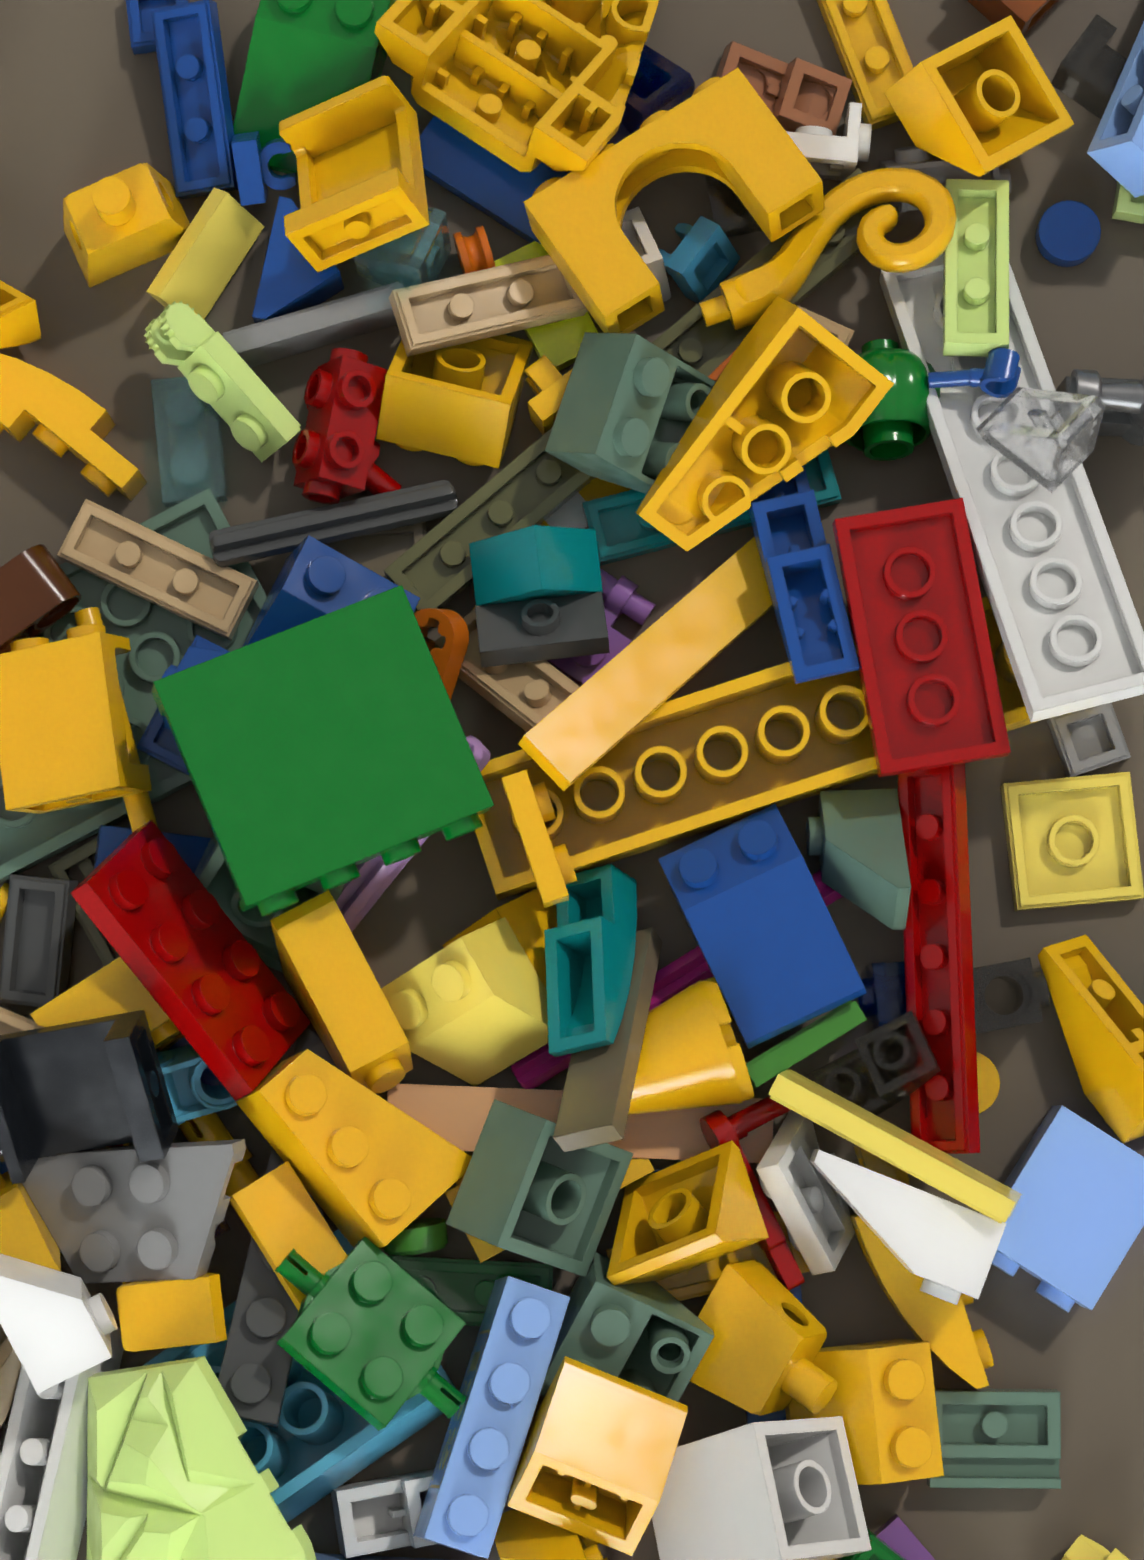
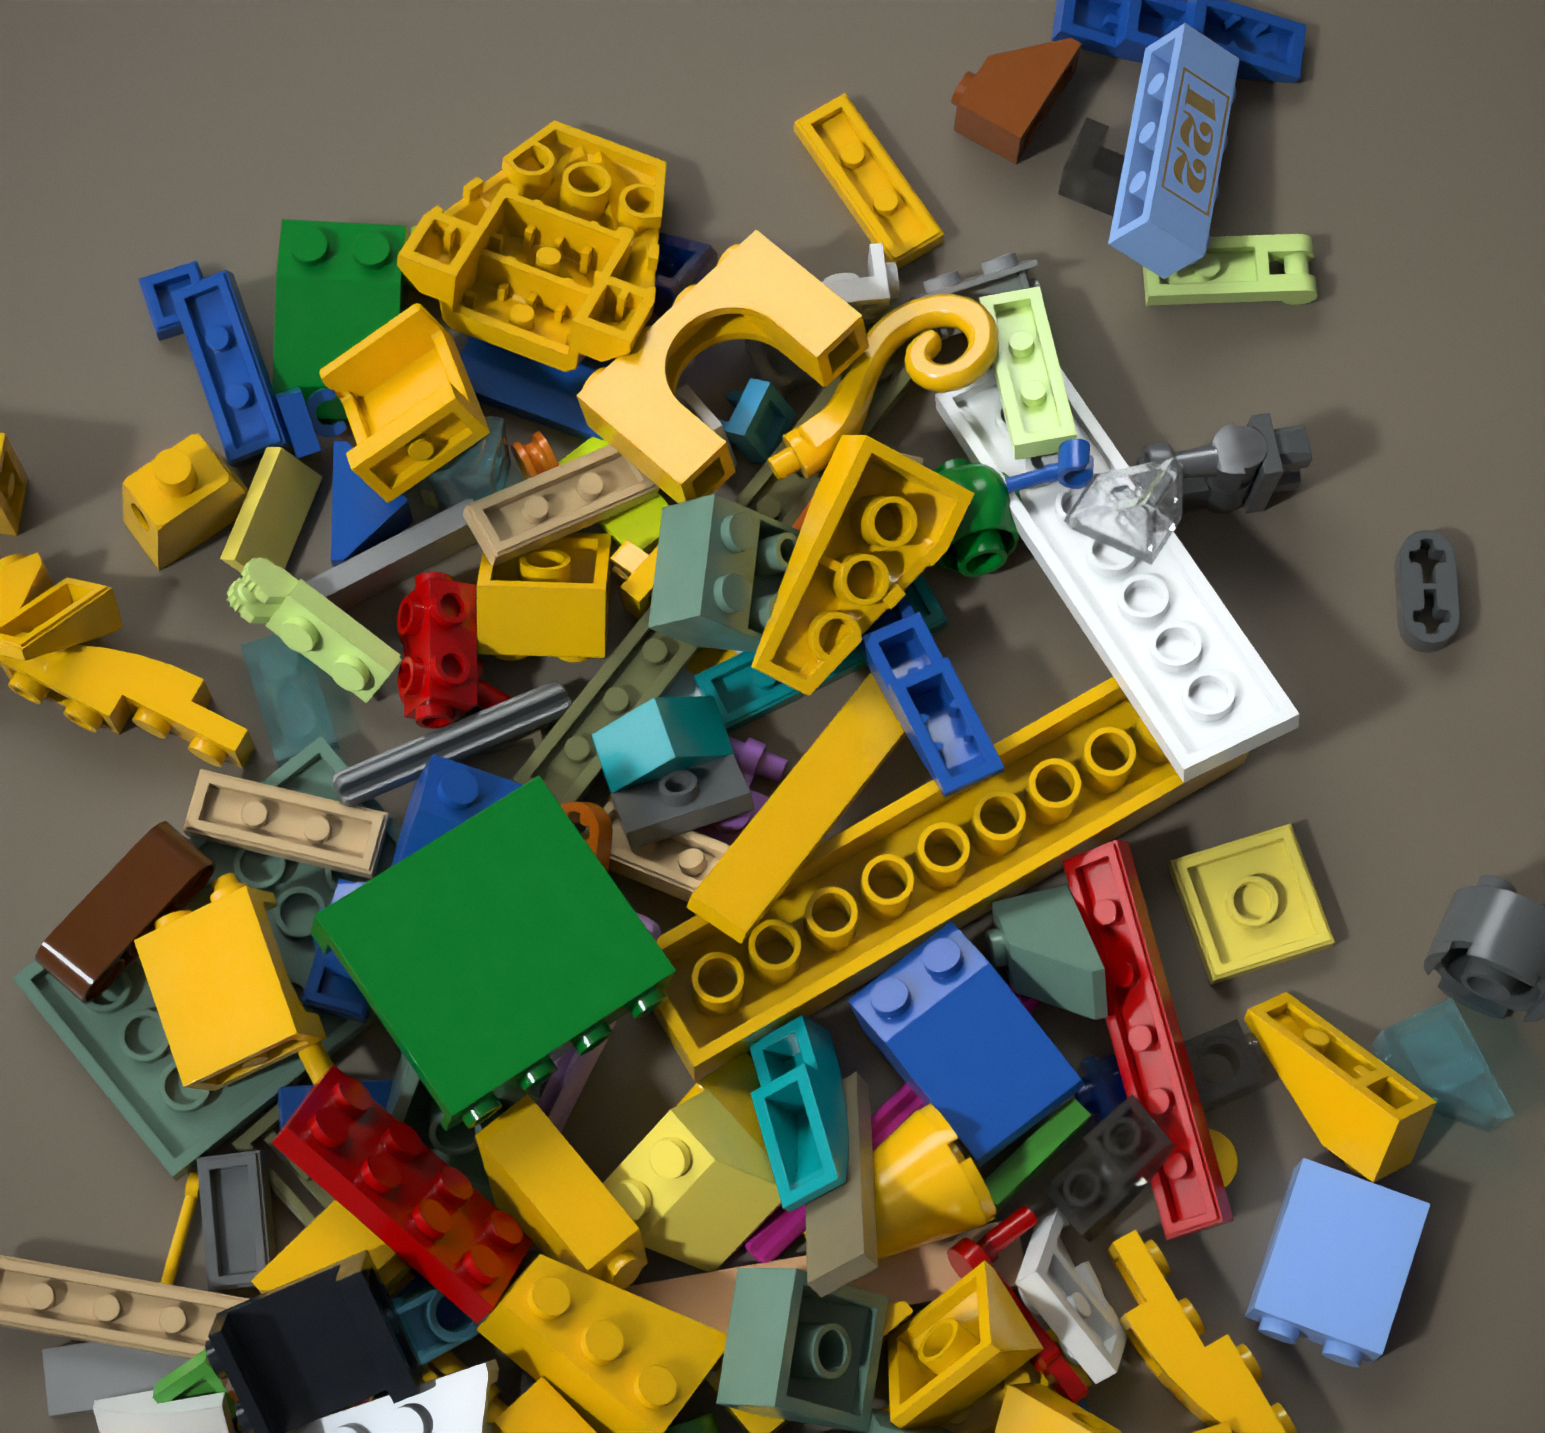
camera: 15 degrees left, 10 degrees down
(548, 864) = (712, 975): yellow plate -> none
(794, 91) = (817, 243): nougat slope -> none
(894, 1145) = (1147, 1228): light yellow tile -> none
(921, 637) = (1057, 728): red plate -> none
(924, 1232) = (1193, 1306): white slope -> none
(980, 101) = (993, 217): yellow slope -> none
(1068, 233) = (1107, 327): blue tile -> none
(1088, 739) = (1243, 800): light grey tile -> none

